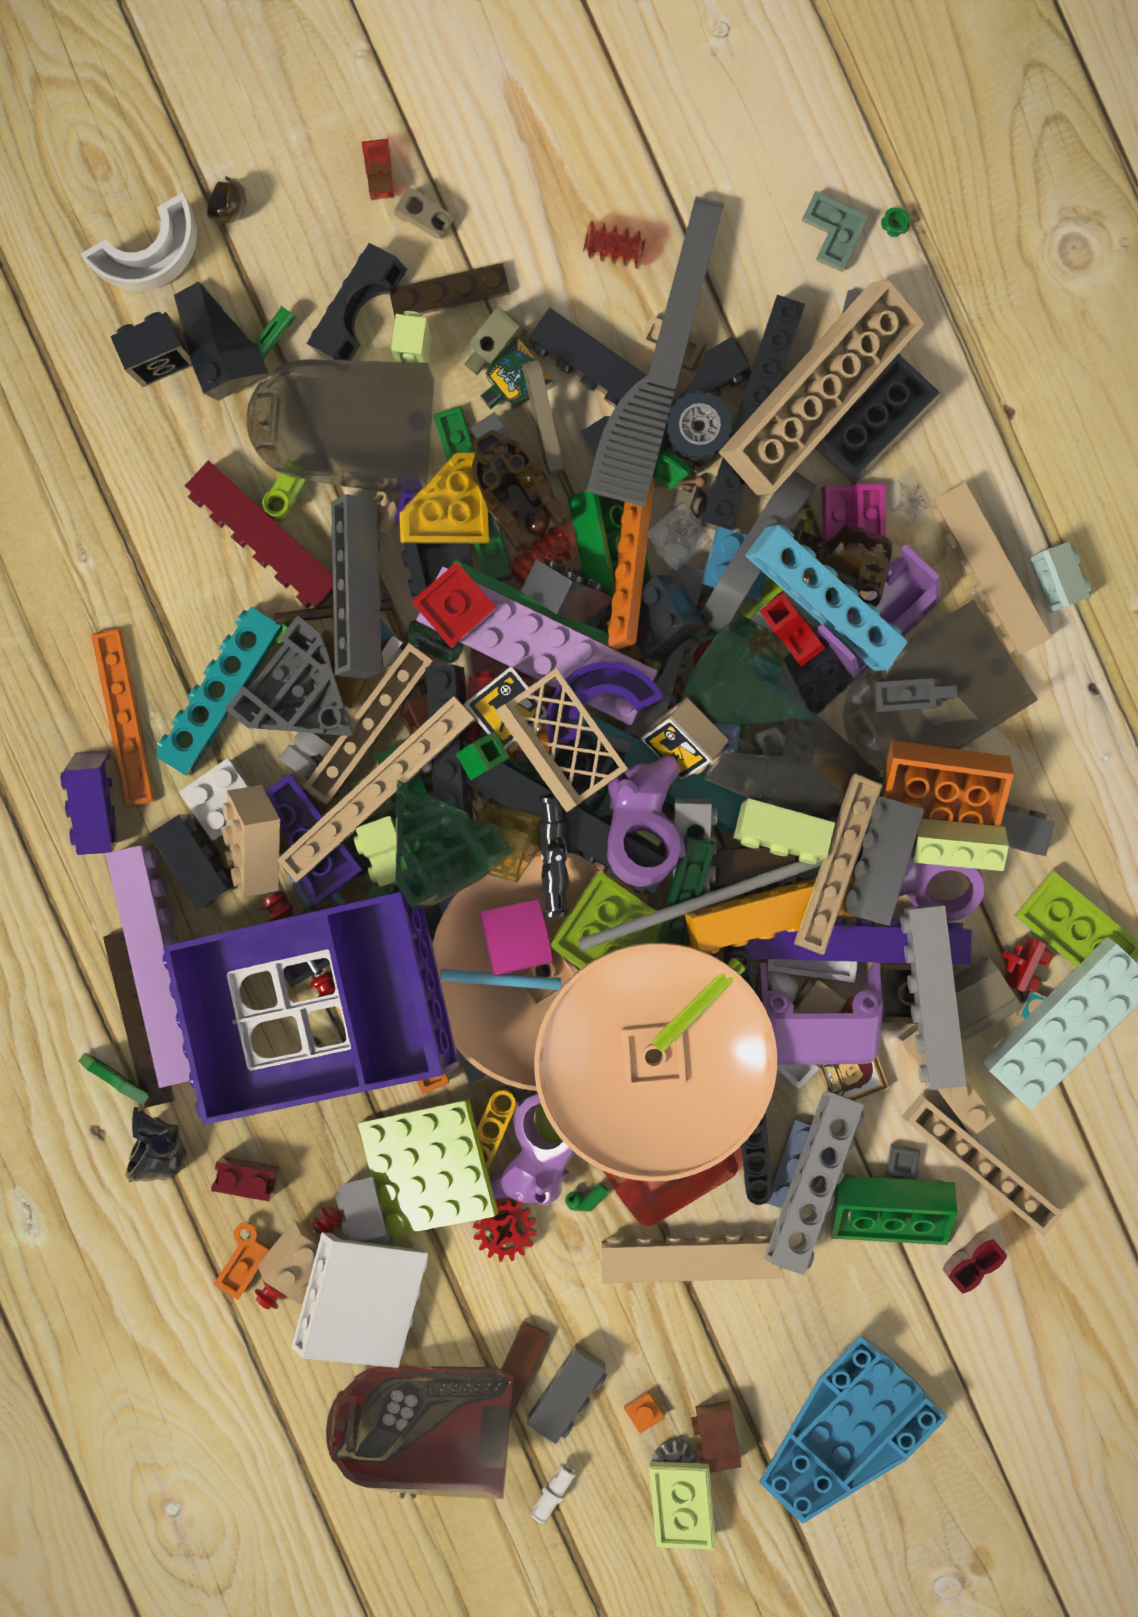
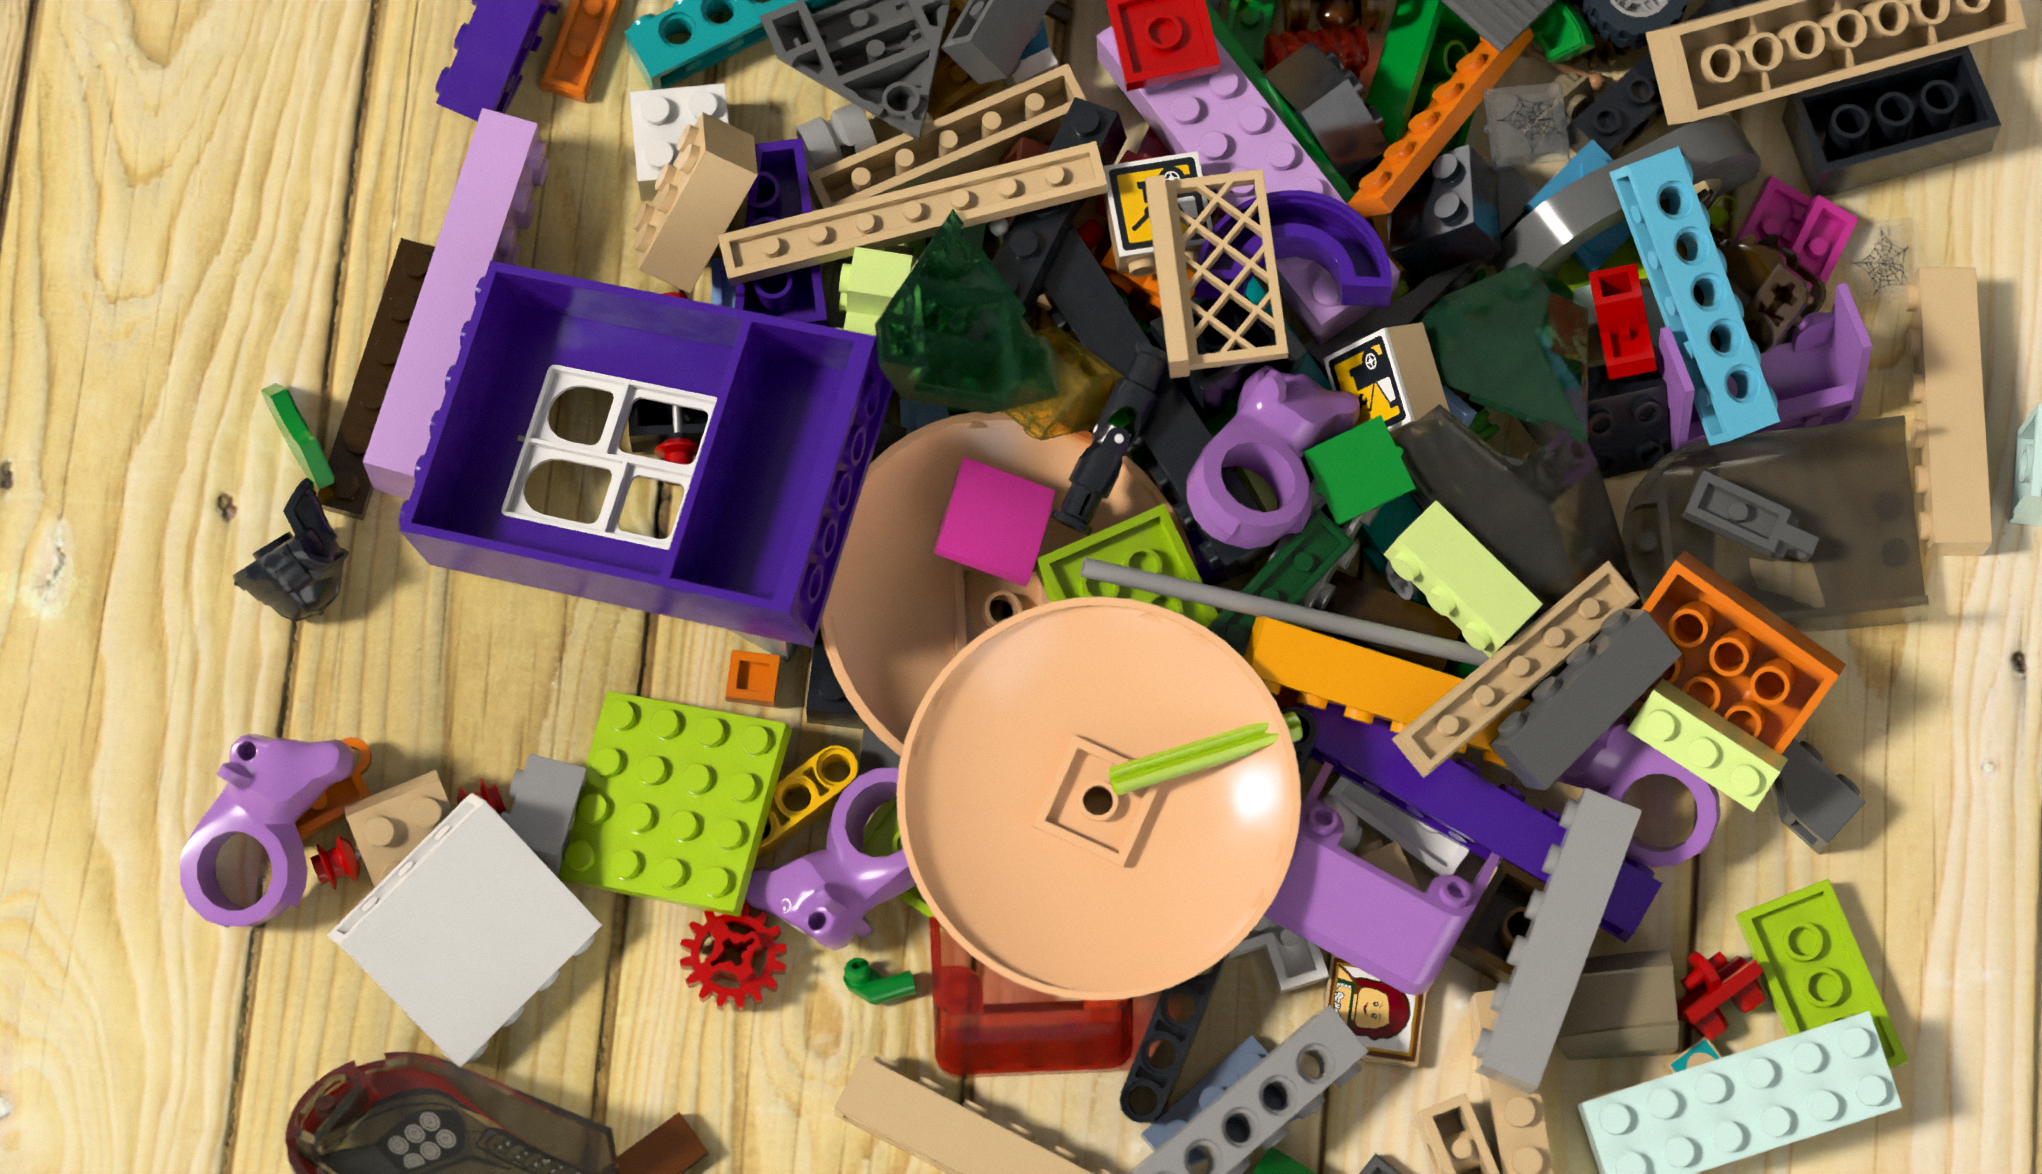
camera: 25 degrees right, 15 degrees down
(193, 860) = (595, 195): black brick -> none
(213, 1290) = (264, 797): none -> medium lavender animal
(245, 1178) = (400, 677): dark red brick -> none
(431, 642) = (1101, 88): clear green plate -> none
(482, 755) = (1089, 246): green brick -> none
(502, 979) = (934, 563): medium azure bar -> none
(697, 803) = (1359, 470): none -> green piece

